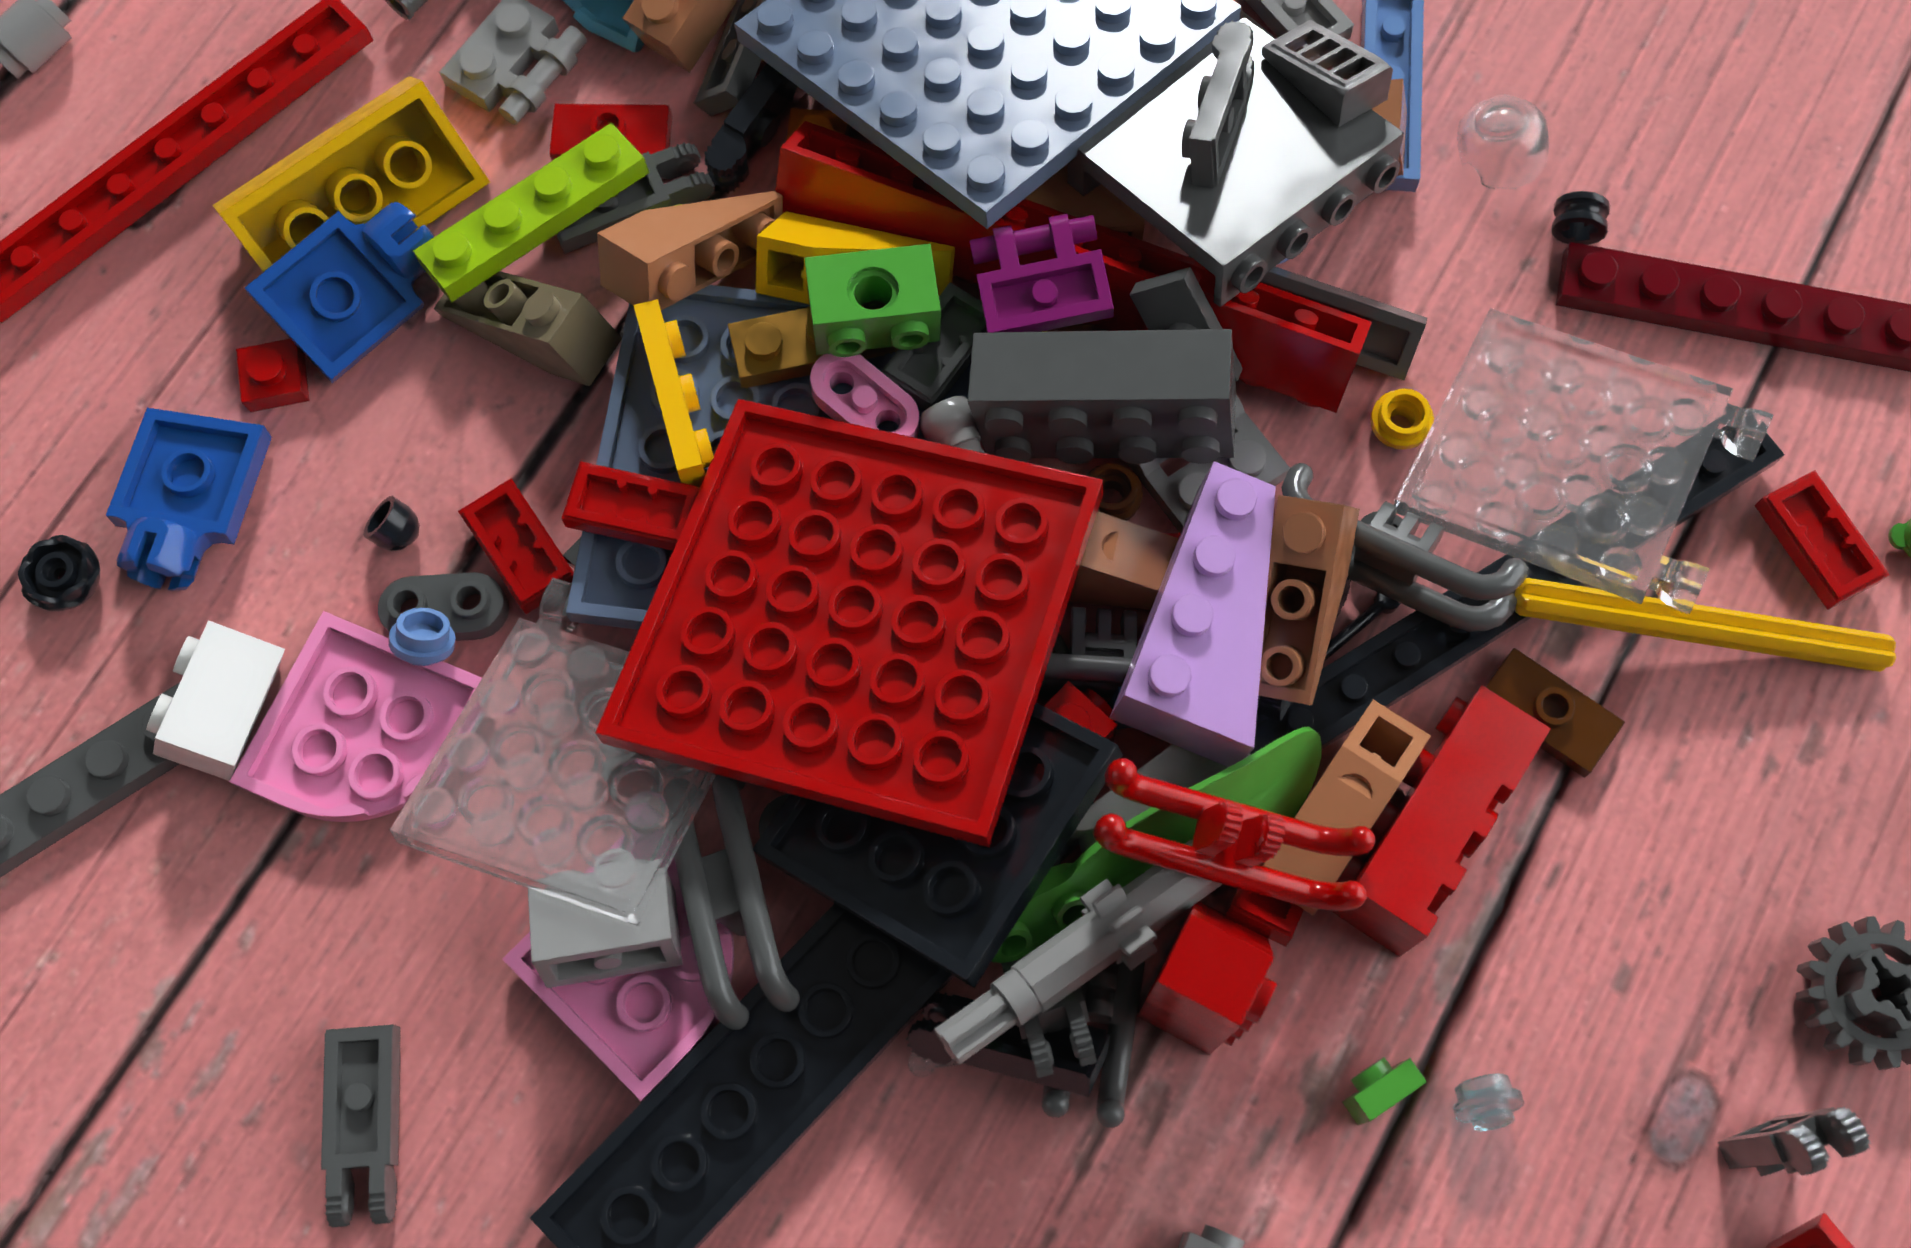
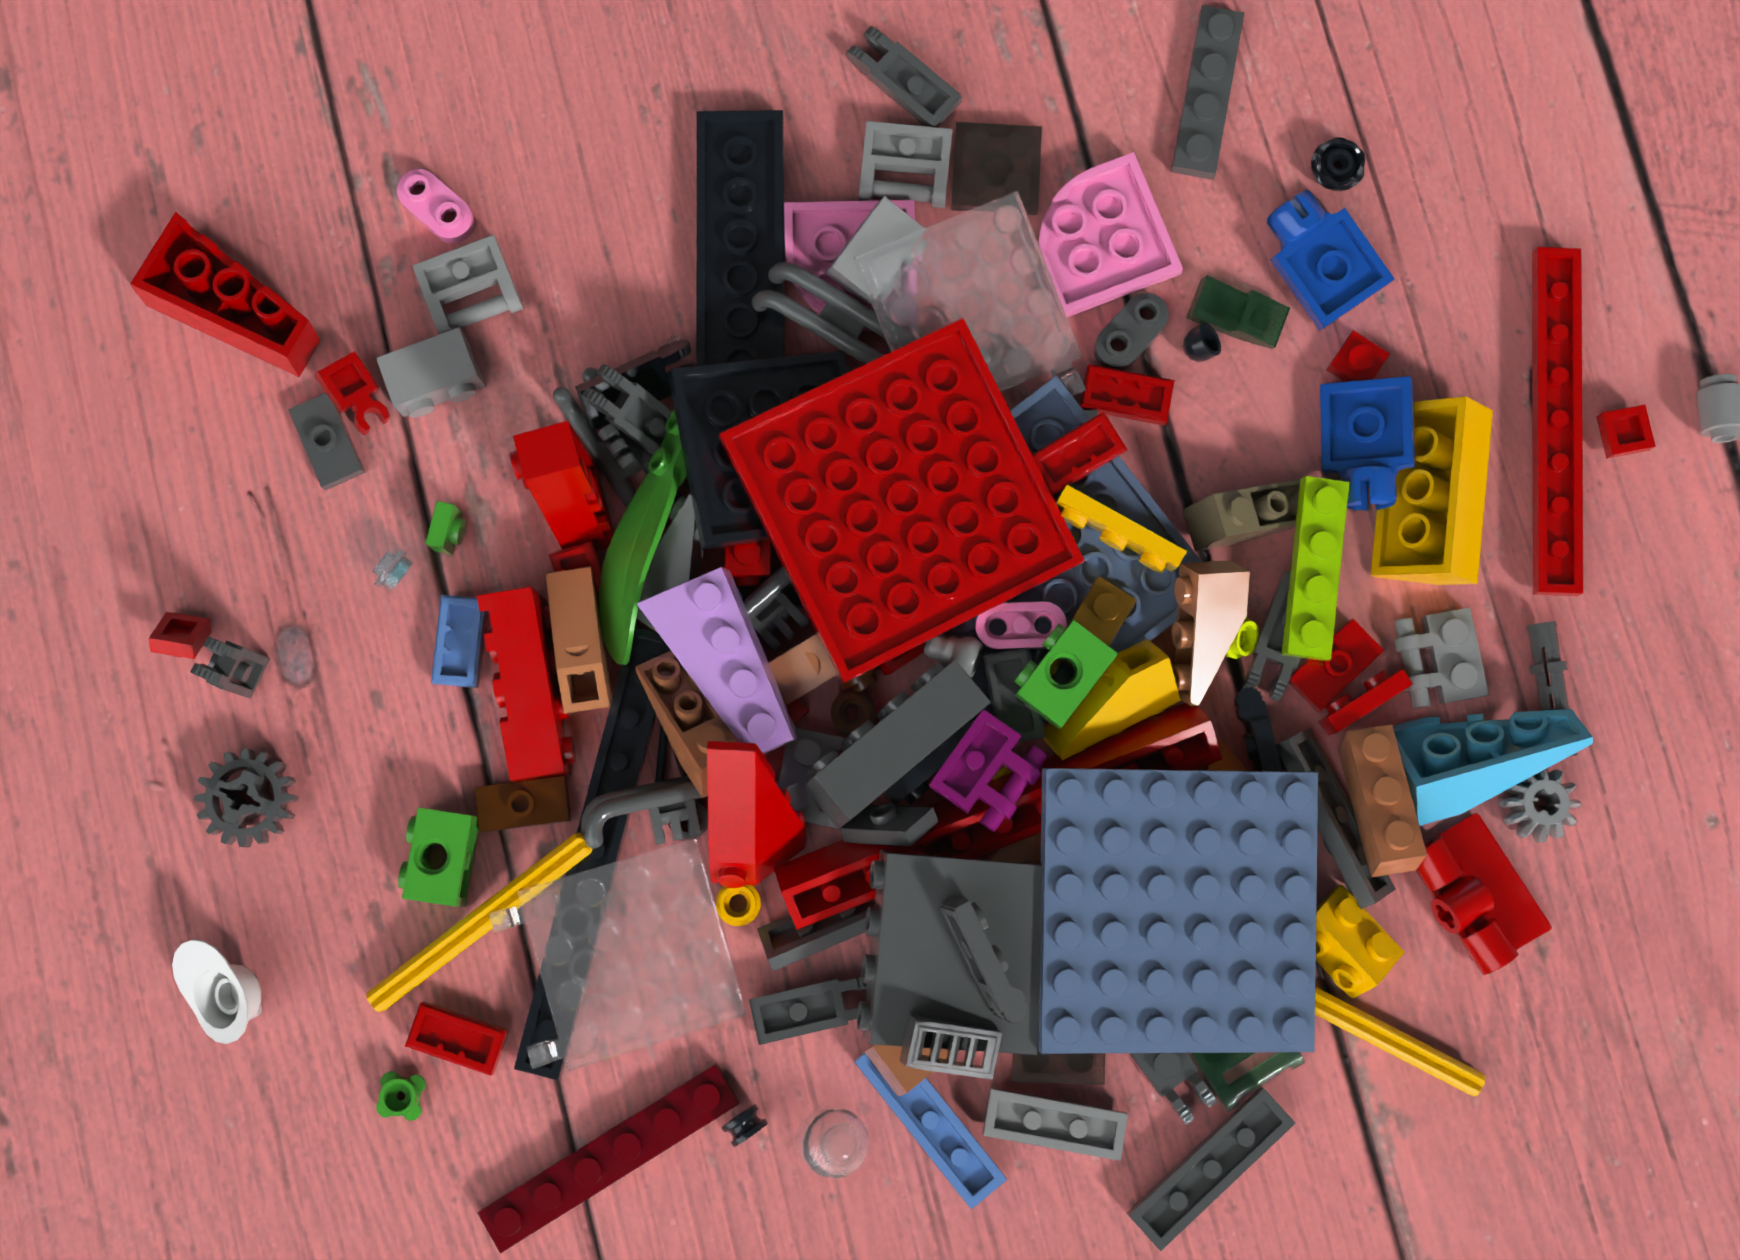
camera: 135 degrees right, 10 degrees up
(127, 91) = (1625, 431): none -> red plate
(216, 700) = (1180, 177): white brick -> none
(324, 526) = (1238, 314): none -> clear green slope
(380, 919) = (995, 163): none -> clear smoke plate
(422, 637) = (1114, 298): medium blue plate -> none
(449, 1030) = (909, 151): none -> light grey plate
(622, 74) = (1378, 690): none -> red plate
(1114, 928) = (629, 461): light grey piece -> none
(1231, 841) = (607, 548): red piece -> none
(1339, 452) = (748, 816): none -> wedge
(1415, 263) = (803, 1010): none -> dark grey hinge
(1474, 947) = (458, 642): none -> medium blue plate
(1717, 701) = (450, 882): none -> bright green brick

